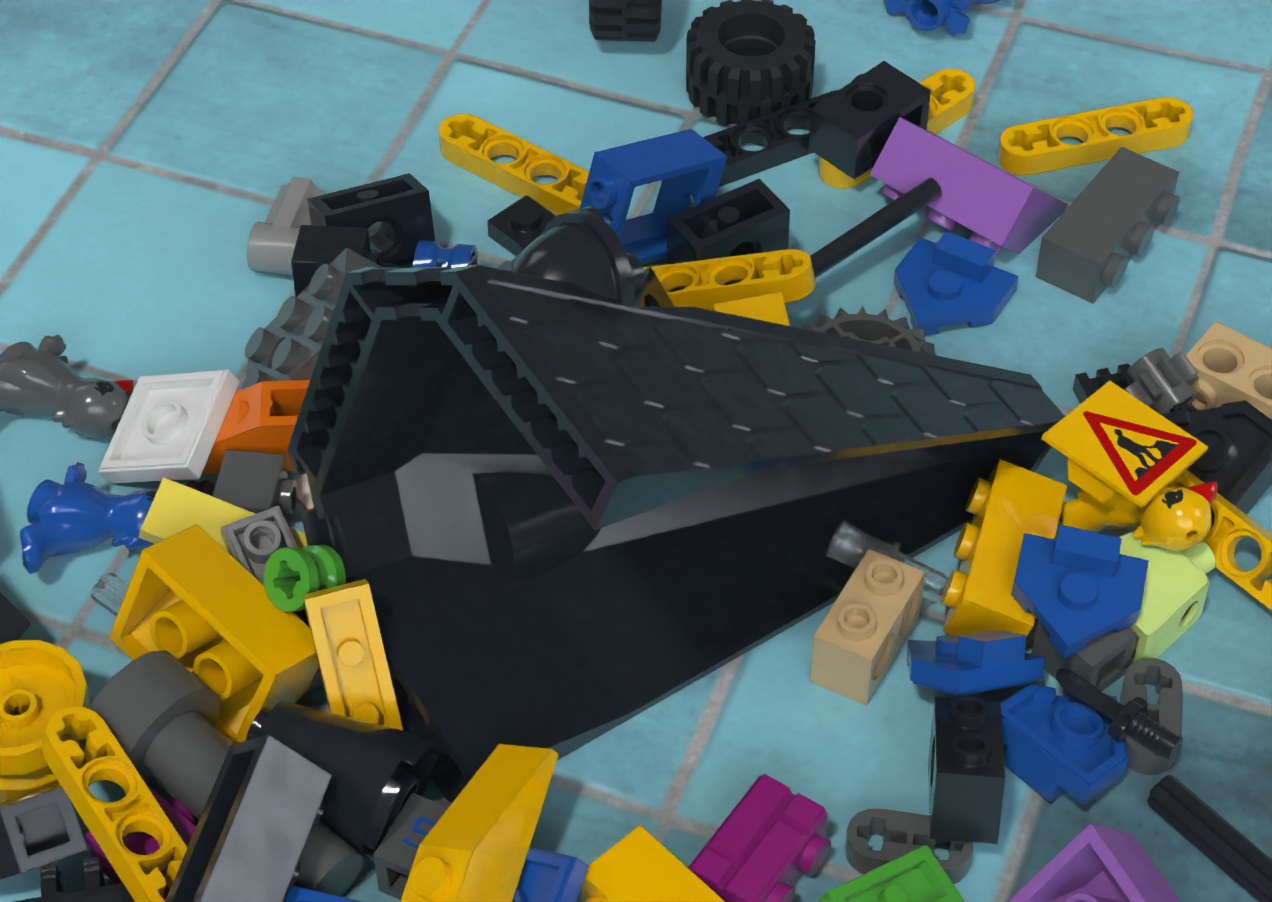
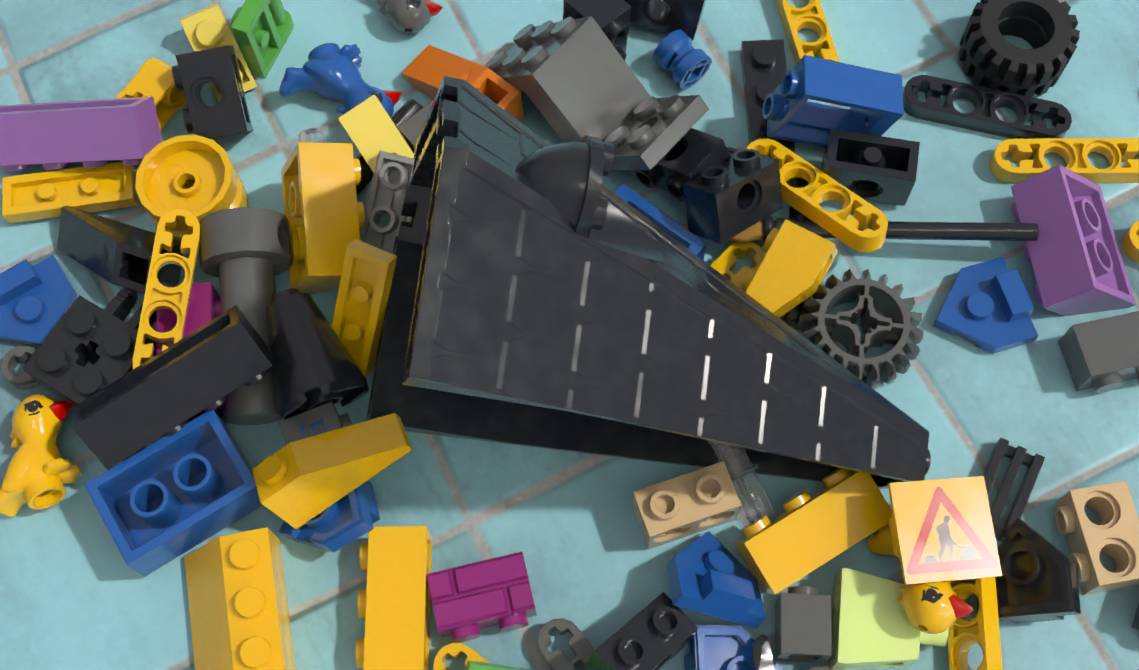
camera: 45 degrees right, 20 degrees up
(169, 427) = (426, 55): white tile -> none
(300, 571) = (377, 224): bright green wheel -> none
(859, 118) = (1024, 154): black brick -> none
(1078, 586) = (820, 597): blue plate -> none
(1163, 381) = (1038, 496): dark grey gear -> none

